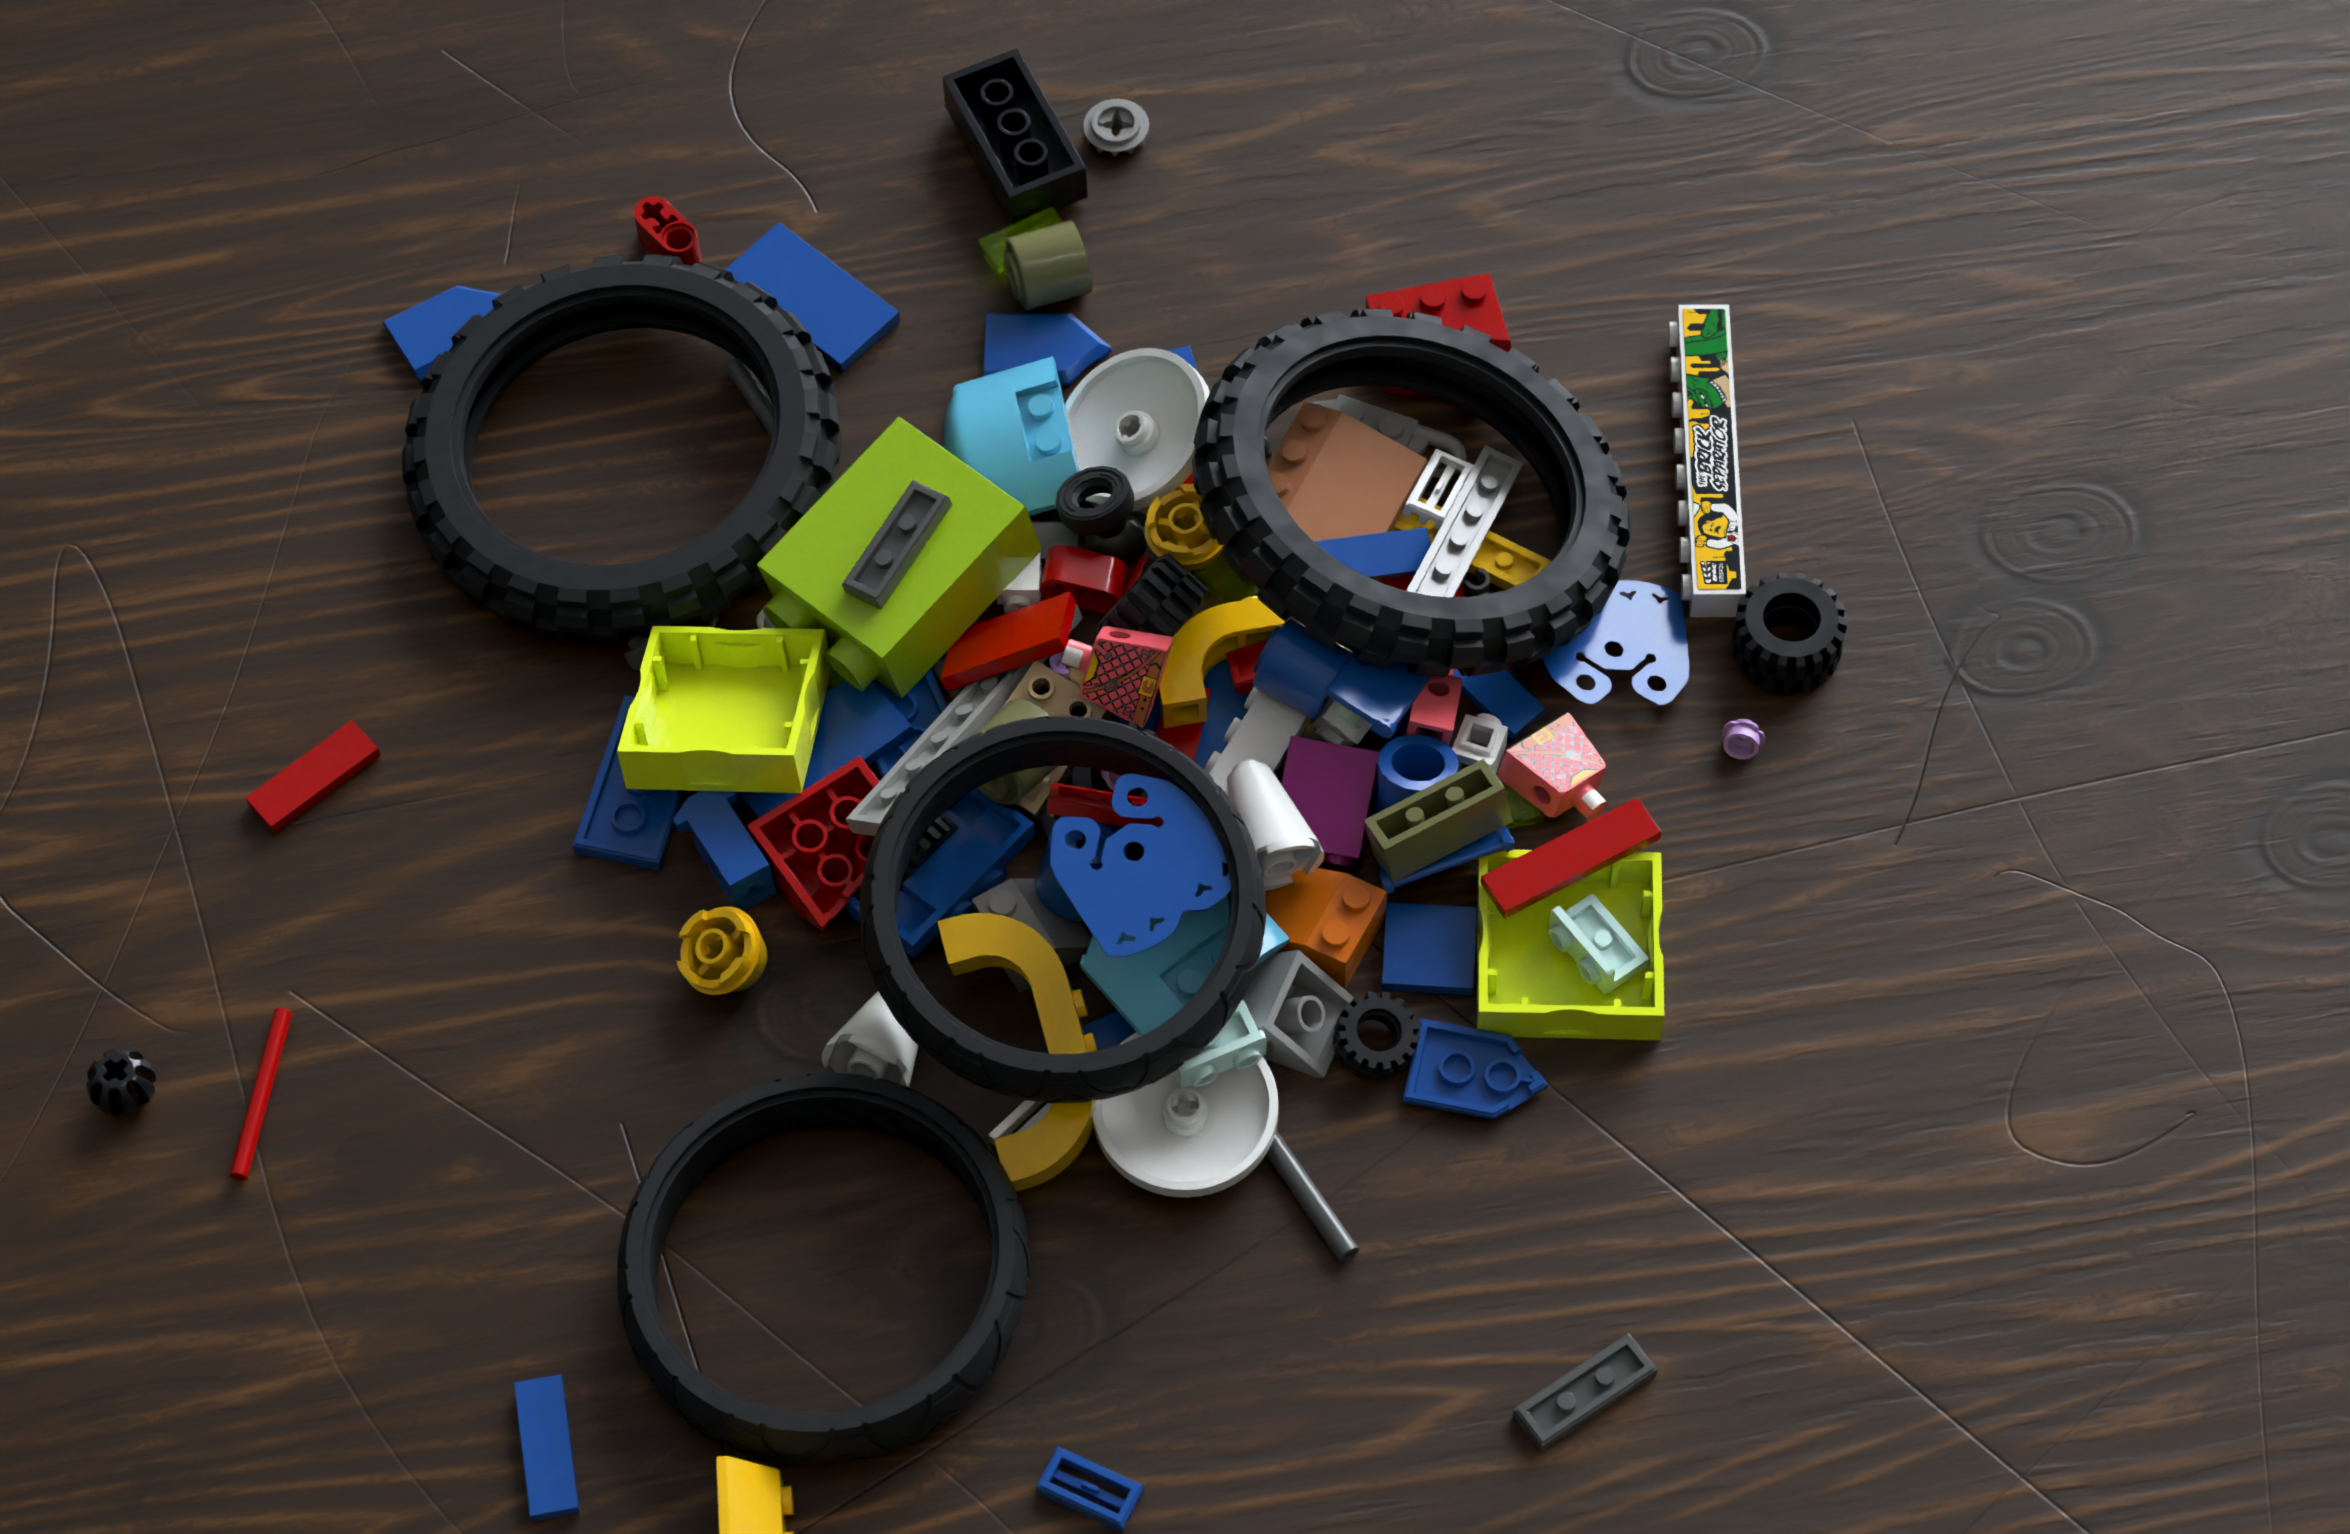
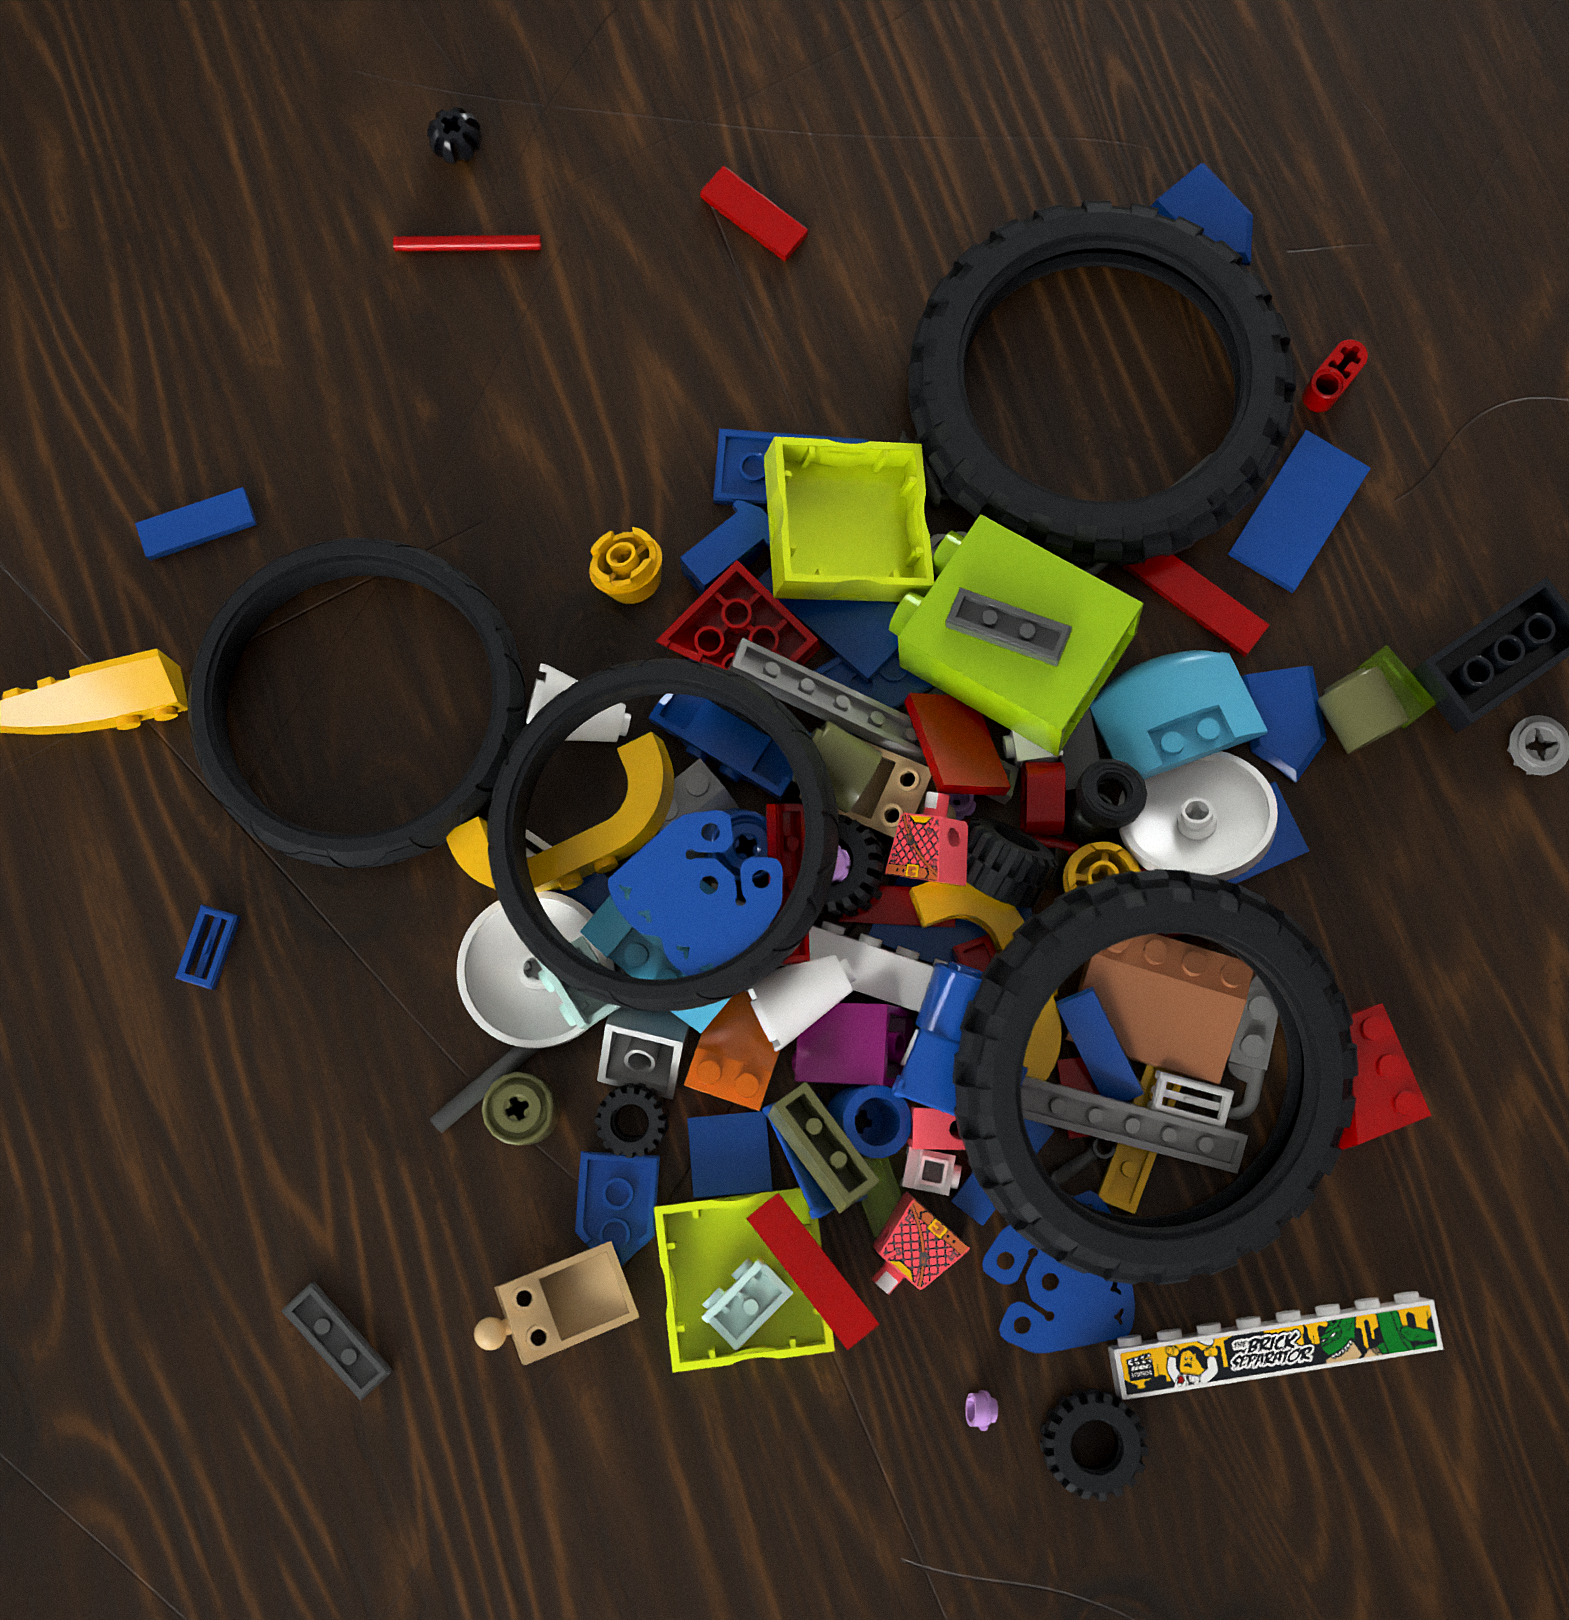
camera: 80 degrees right, 20 degrees up
(894, 396) = (1201, 601): none -> red tile
(1339, 1164) = (539, 1118): none -> olive piece
(1575, 1137) = (568, 1303): none -> tan slope

